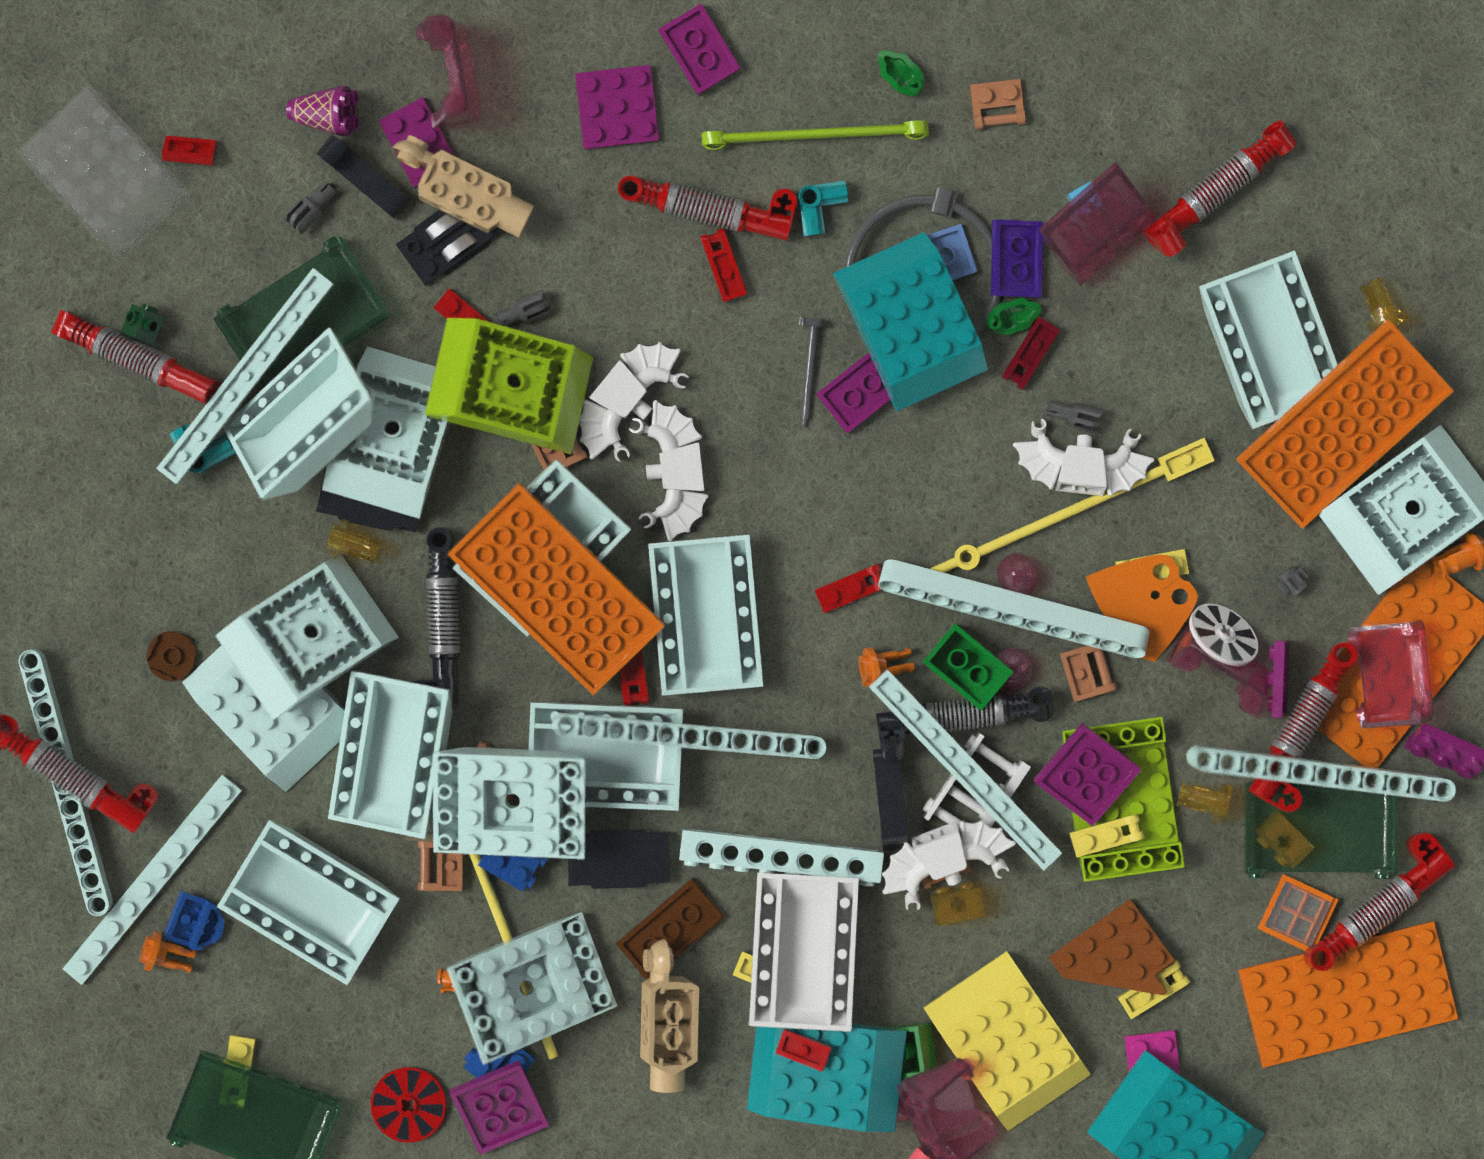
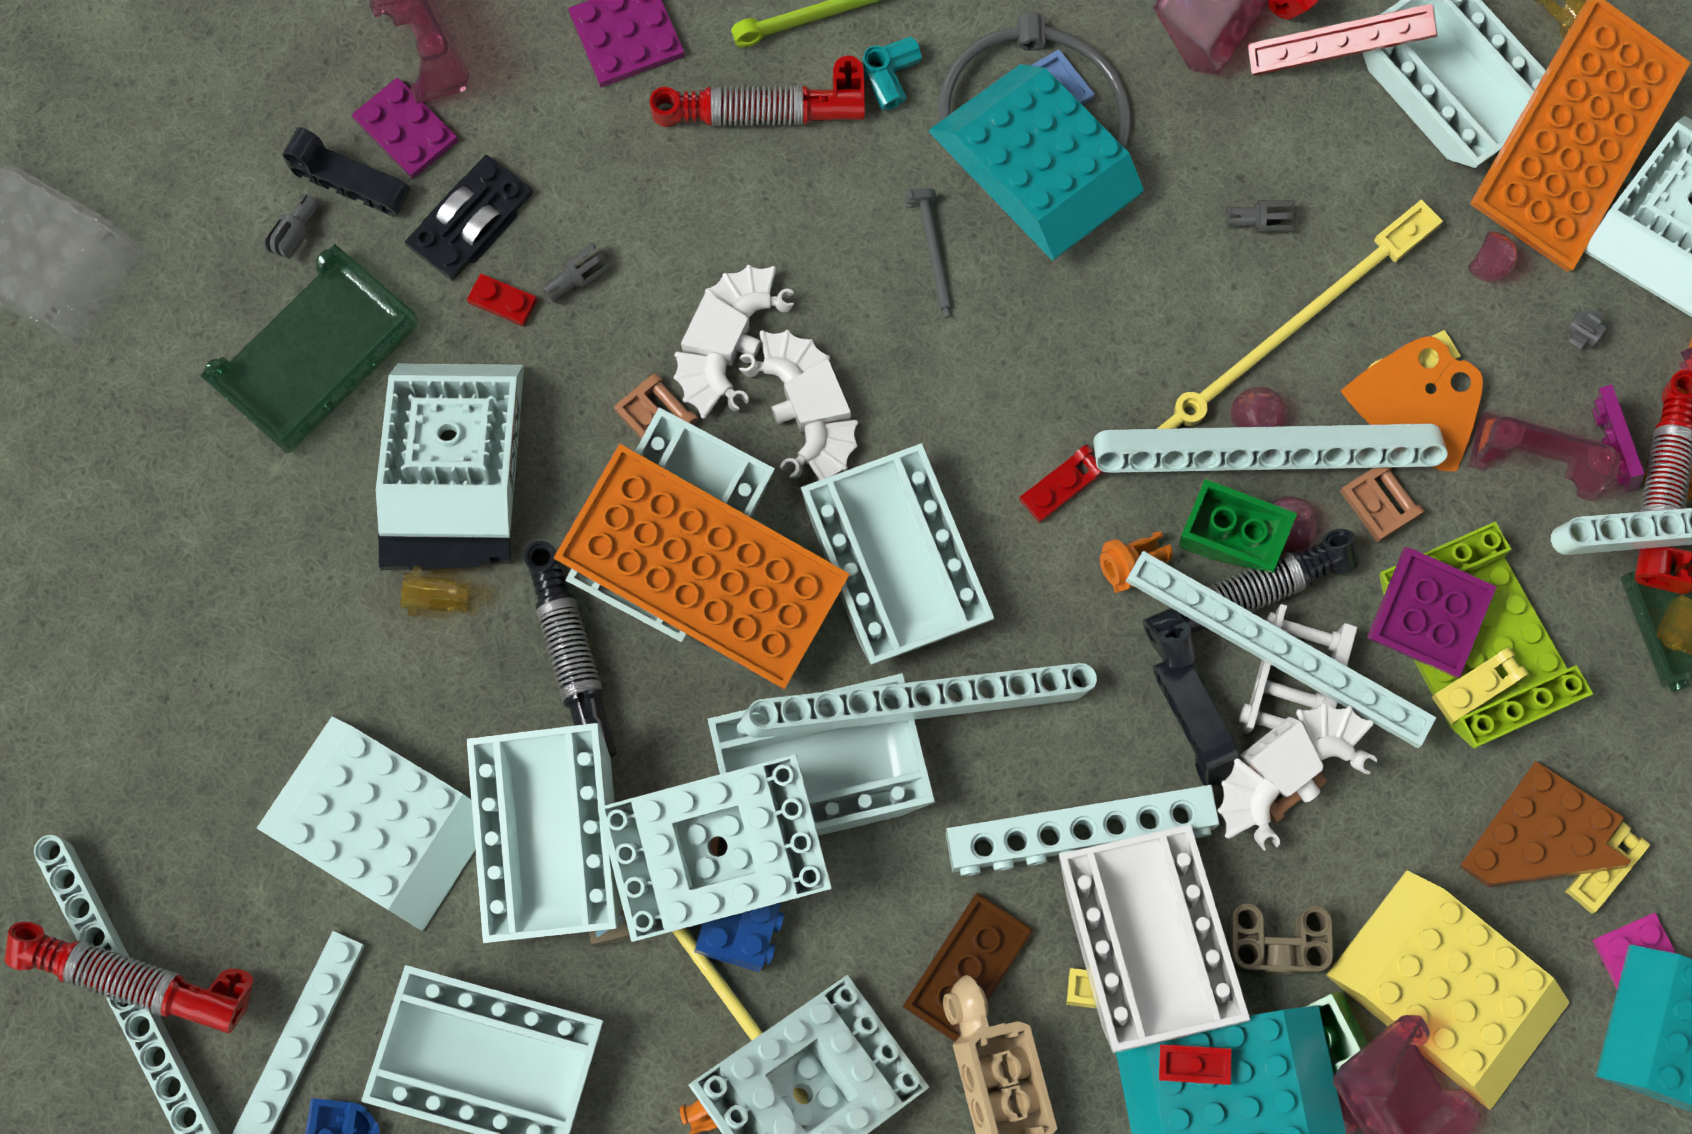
camera: 20 degrees left, 15 degrees down
(143, 323) = (115, 406): dark green brick -> none
(158, 366) = (150, 449): red piece -> none
(177, 650) = (245, 805): reddish brown tile -> none
(189, 150) = (133, 202): red plate -> none
(215, 452) = (206, 537): teal piece -> none
(245, 376) = (251, 429): light aqua plate -> none
(285, 663) = (384, 751): light aqua slope -> none
(301, 419) = (333, 448): light aqua slope -> none
(326, 110) = (283, 112): magenta cone -> none
(448, 870) = (658, 968): nougat plate -> none
(464, 189) = (468, 151): tan brick -> none
(474, 389) = (541, 363): lime slope -> none
(621, 859) = (877, 892): black piece -> none
(634, 674) = (827, 657): red plate -> none
(723, 266) = (799, 165): red plate -> none
(855, 394) = (997, 261): magenta plate -> none
(895, 986) = (1280, 954): none -> dark tan beam
(971, 908) = (1343, 822): clear yellow brick -> none
(1013, 316) = (1152, 127): green arm -> none
(1016, 258) = (1135, 66): dark purple plate -> none
(1031, 352) = (1186, 163): dark red plate -> none
(1082, 467) = (1290, 267): white torso -> none
(1184, 292) = (1343, 39): none -> plate
(1206, 799) = (1585, 610): clear yellow piece -> none
(1223, 634) = (1532, 405): white piece -> none
(1243, 504) = (1495, 258): none -> clear pink hair

